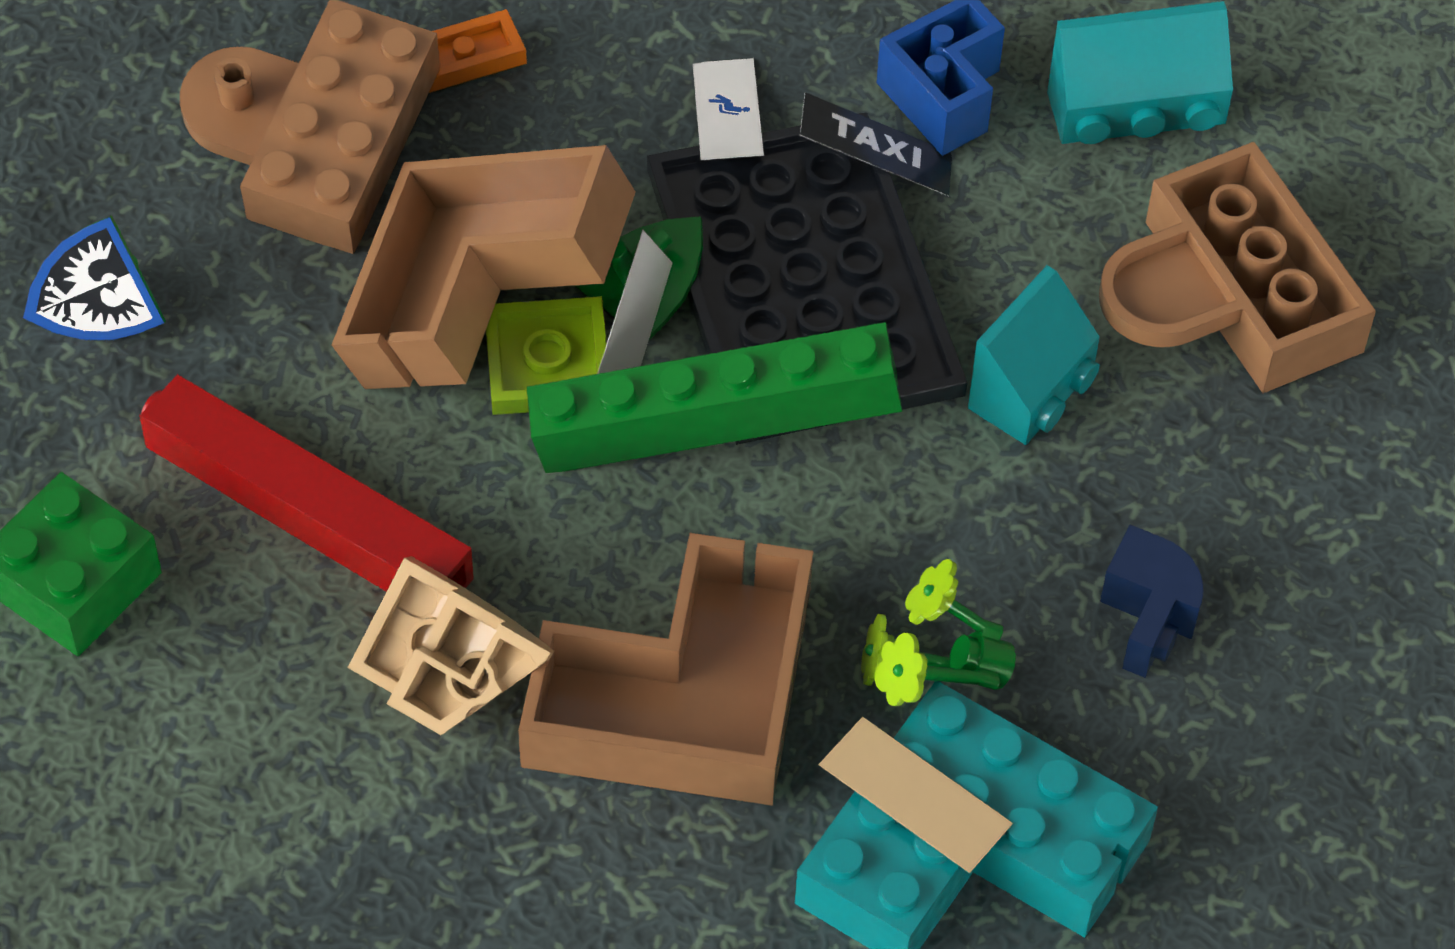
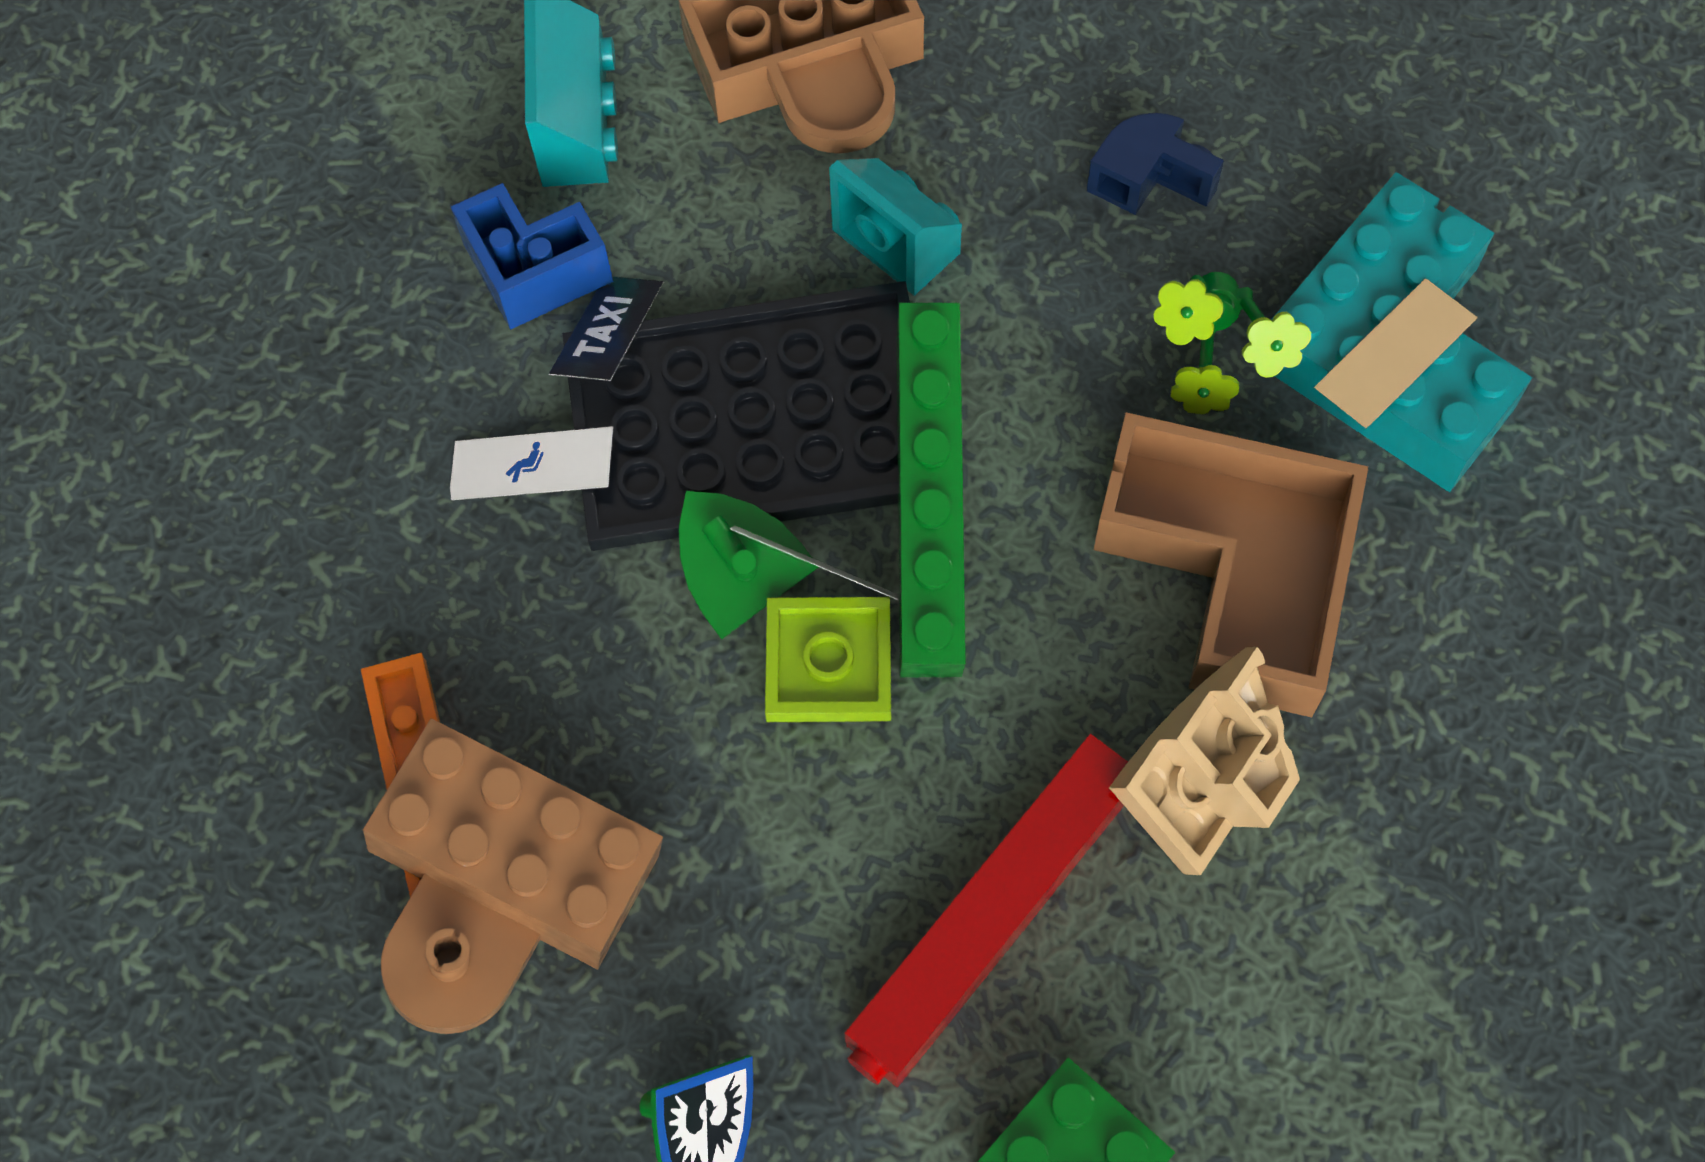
camera: 80 degrees left, 10 degrees up
(461, 237) = (694, 712): medium nougat piece -> none

